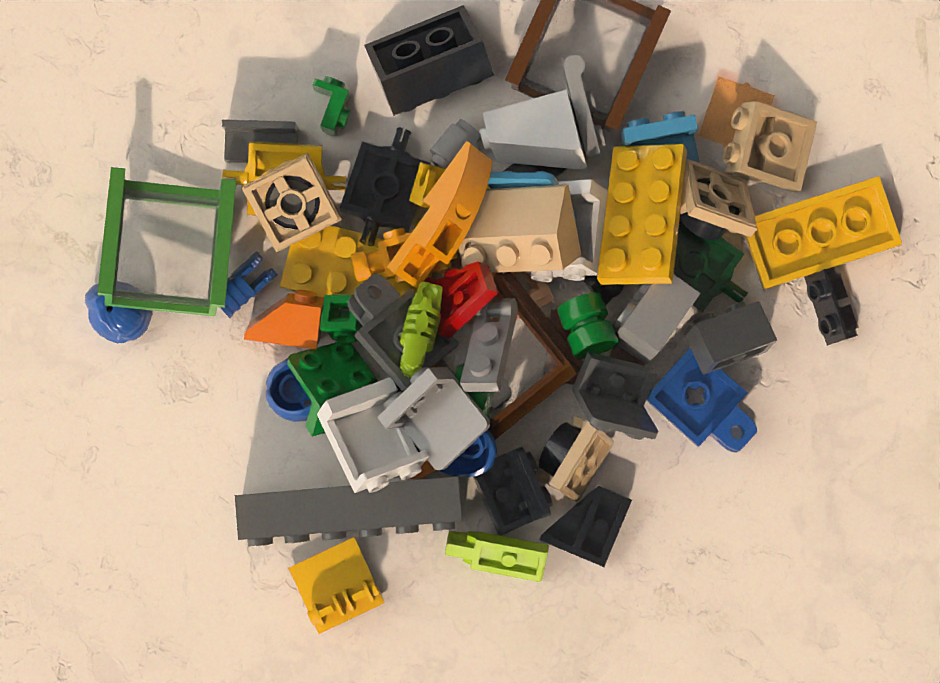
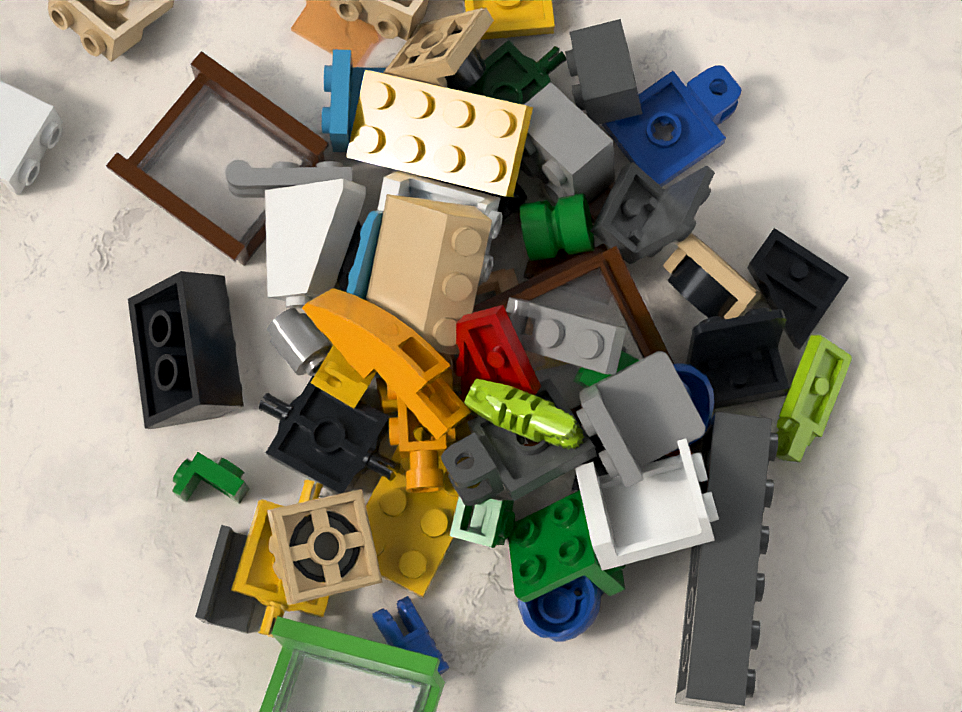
camera: 80 degrees left, 10 degrees down
(289, 321) = (471, 590): orange slope -> none
(336, 585) = (813, 606): yellow hinge -> none

